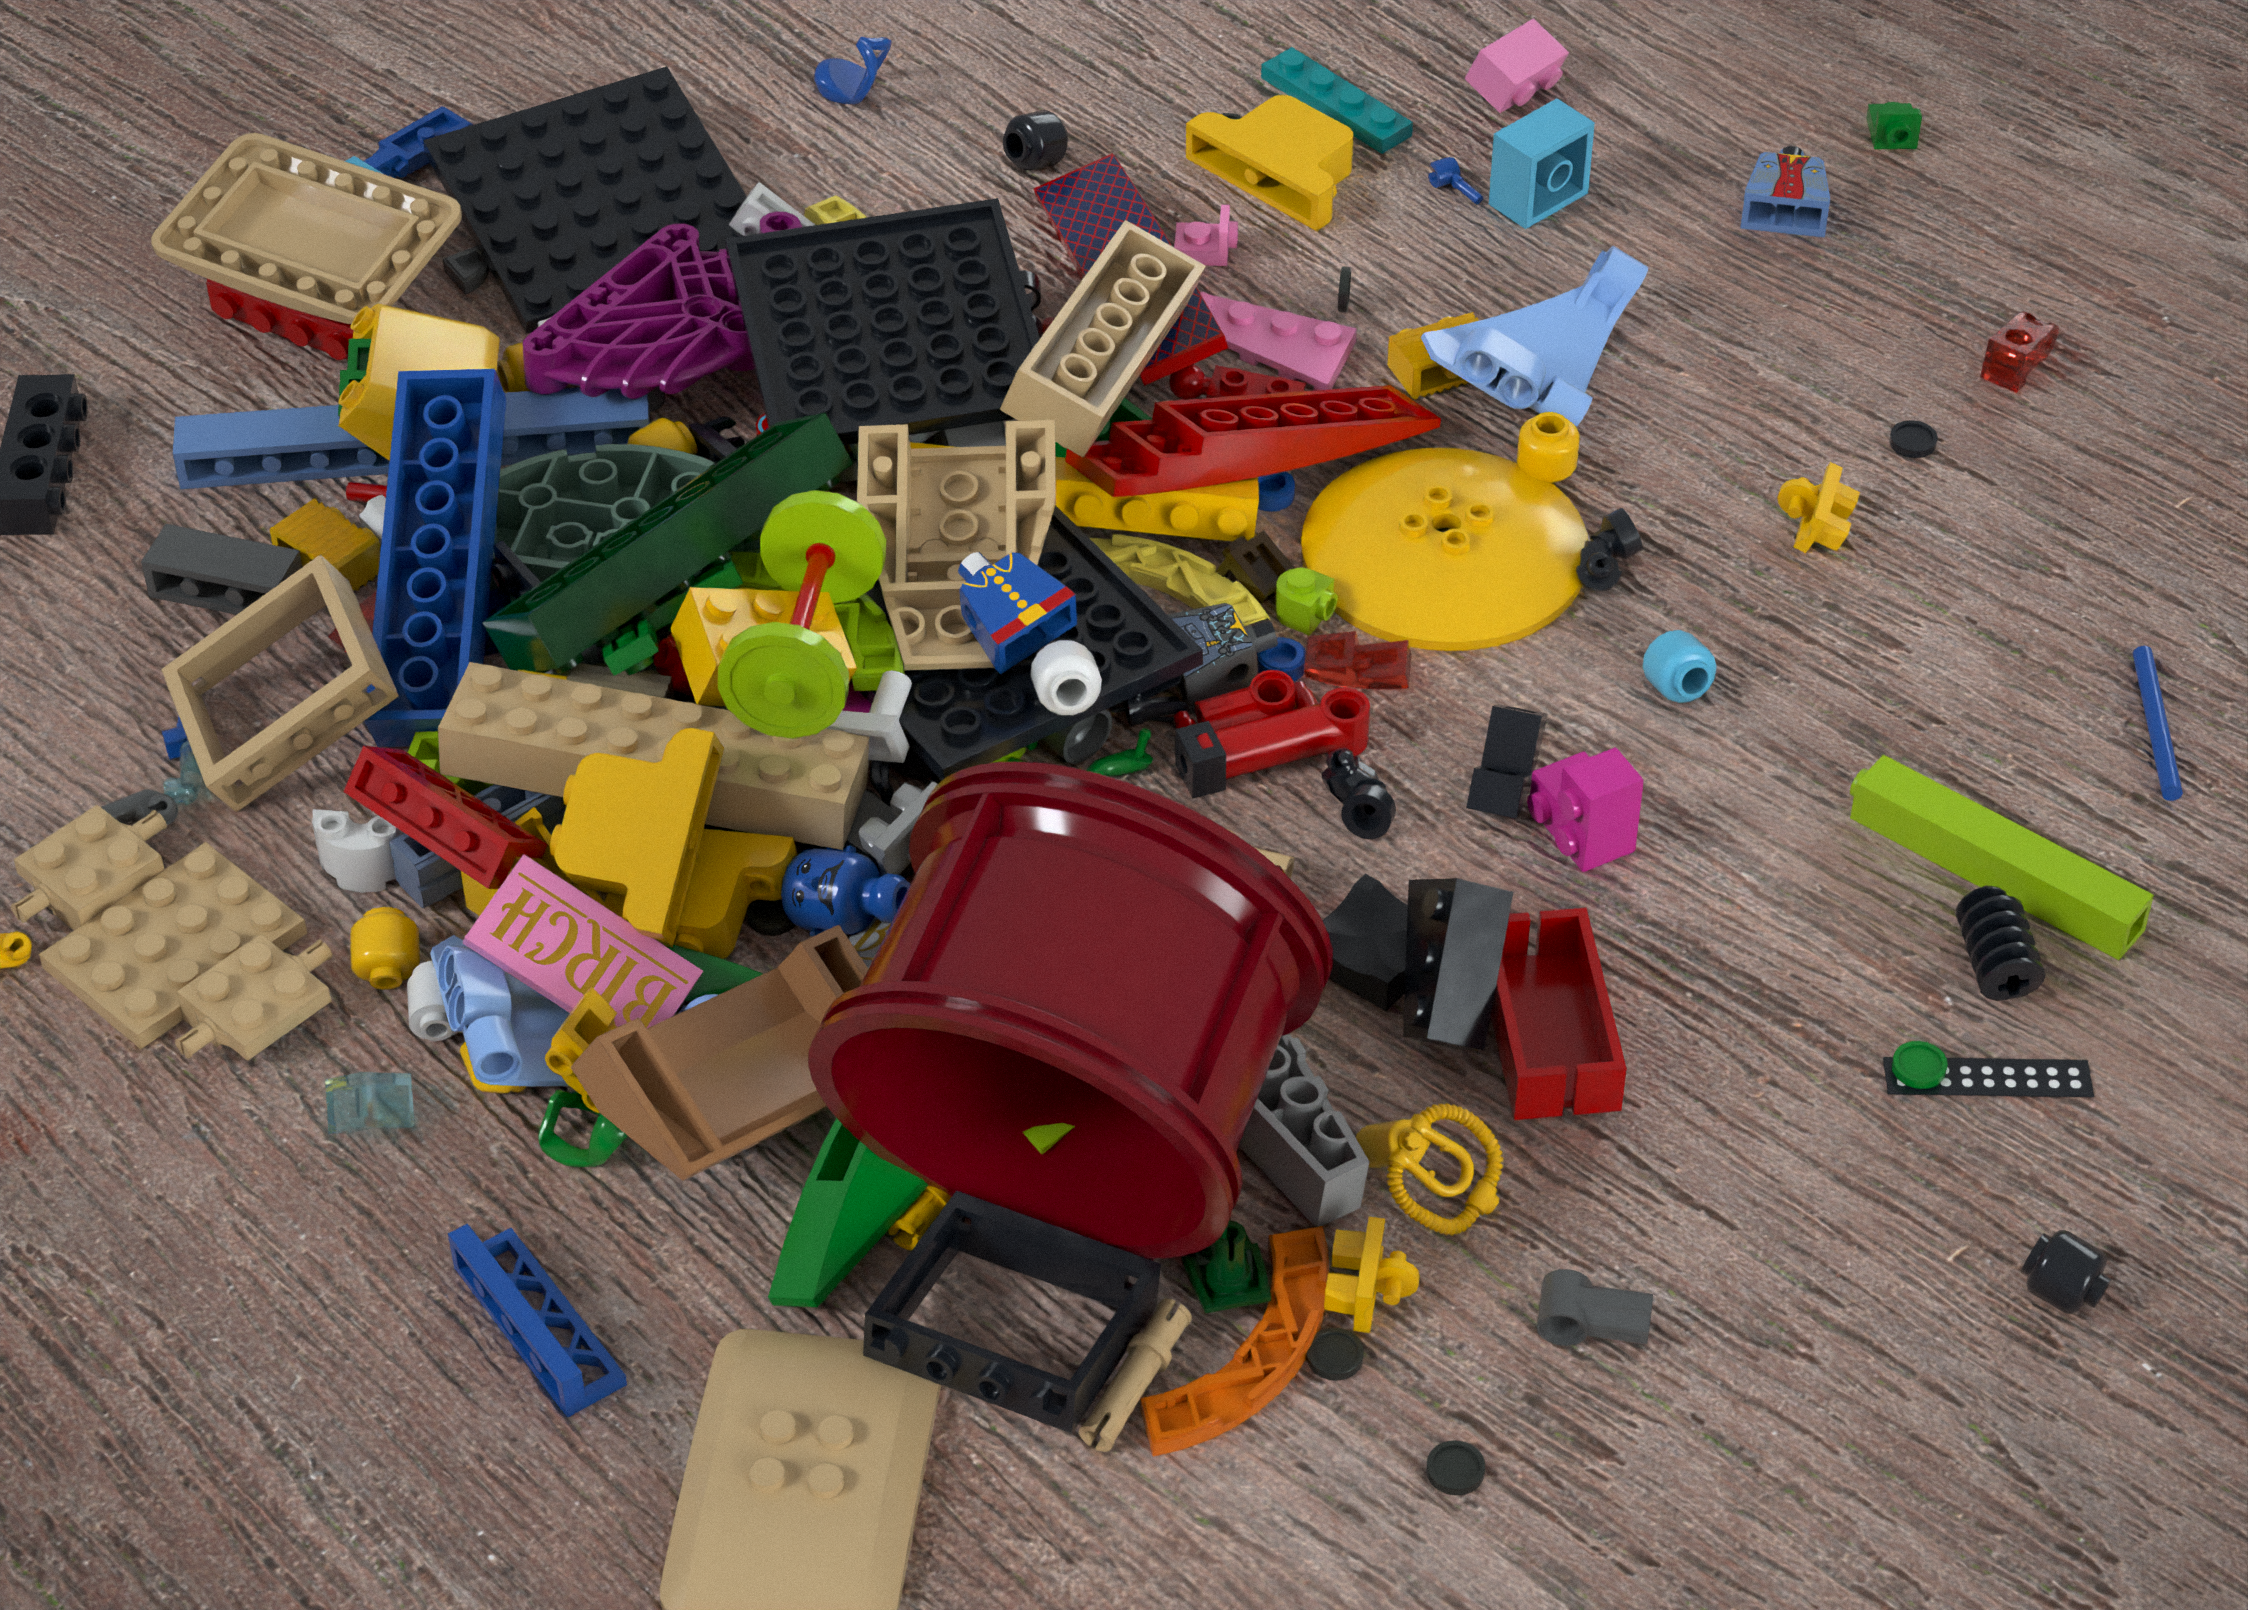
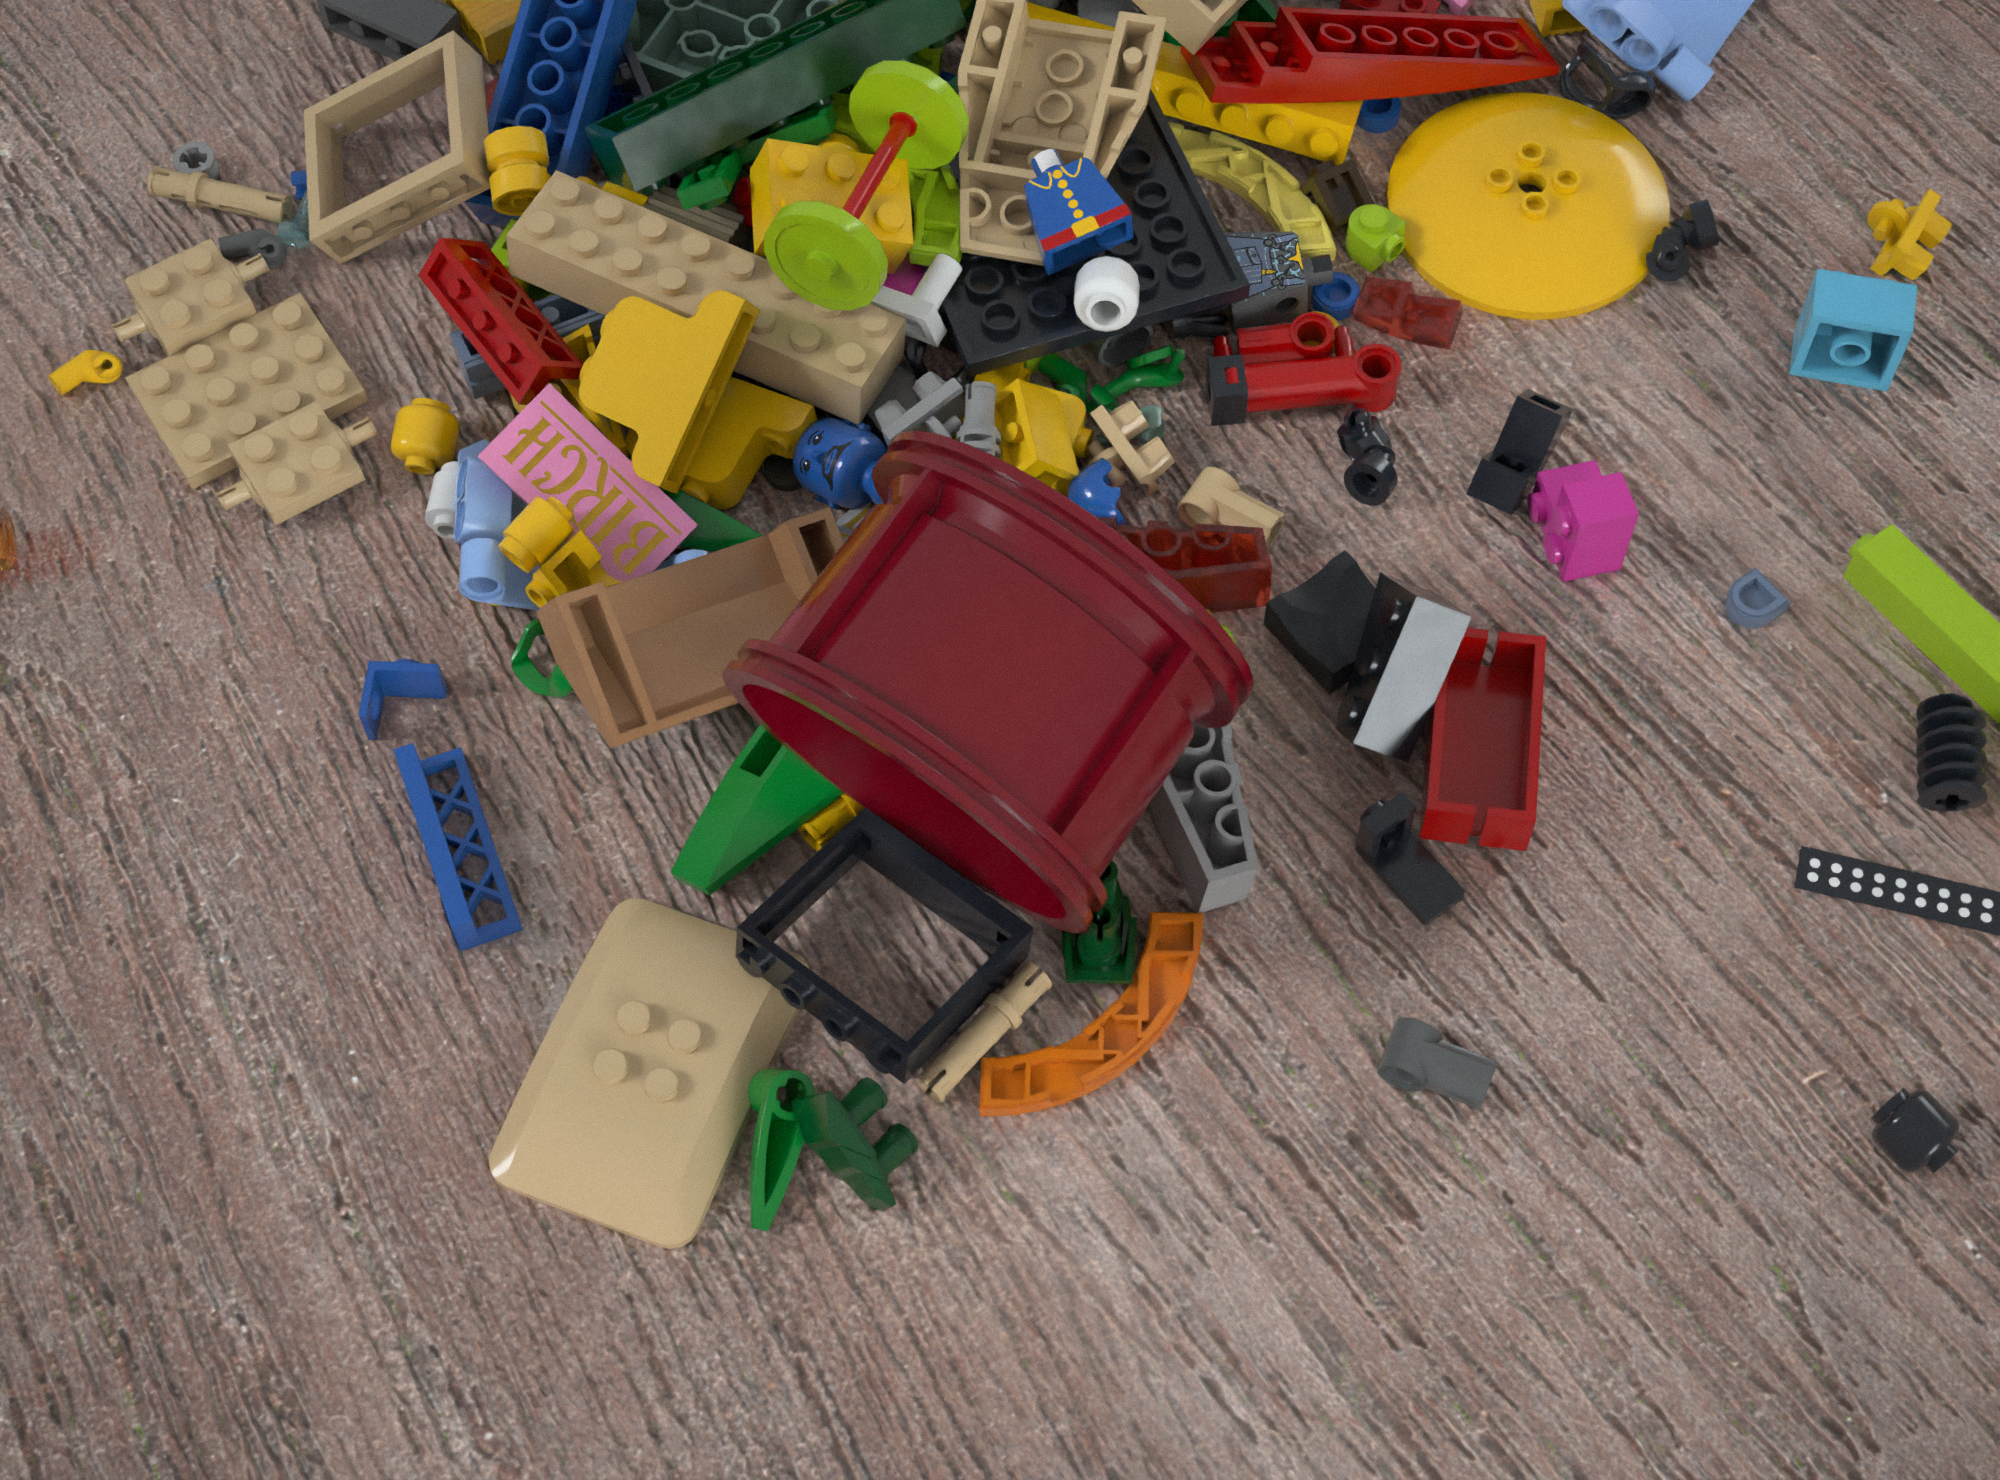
camera: 15 degrees right, 15 degrees up
(52, 757) = (196, 153): none -> light grey bush
(83, 767) = (201, 192): none -> tan pin
(354, 851) = (422, 330): white cylinder -> none
(369, 1102) = (369, 593): clear light blue panel -> none
(423, 672) = (518, 167): none -> yellow wheel
(433, 1176) = (397, 679): none -> blue bracket
(545, 1000) = (537, 533): none -> yellow brick
(956, 1482) = (775, 1140): none -> green piece
(1032, 1497) = (834, 1134): none -> dark green connector
(1114, 743) = (1149, 356): none -> green piece
(1335, 1354) = (1179, 1049): pearl dark grey piece -> none
(1388, 1276) = (1215, 995): yellow hips -> none
(1404, 1143) = (1300, 854): yellow piece -> none
(1455, 1467) = (1259, 1197): pearl dark grey piece -> none
(1505, 426) = (1624, 95): none -> black piece
(1525, 1153) = (1403, 861): none -> black bracket
(1548, 447) = (1655, 118): yellow head -> none
(1679, 666) = (1718, 381): medium azure head -> none
(1773, 853) = (1755, 601): none -> sand blue tile
(1795, 595) = (1853, 329): none -> medium azure brick
(1919, 1064) = (1834, 864): green piece -> none

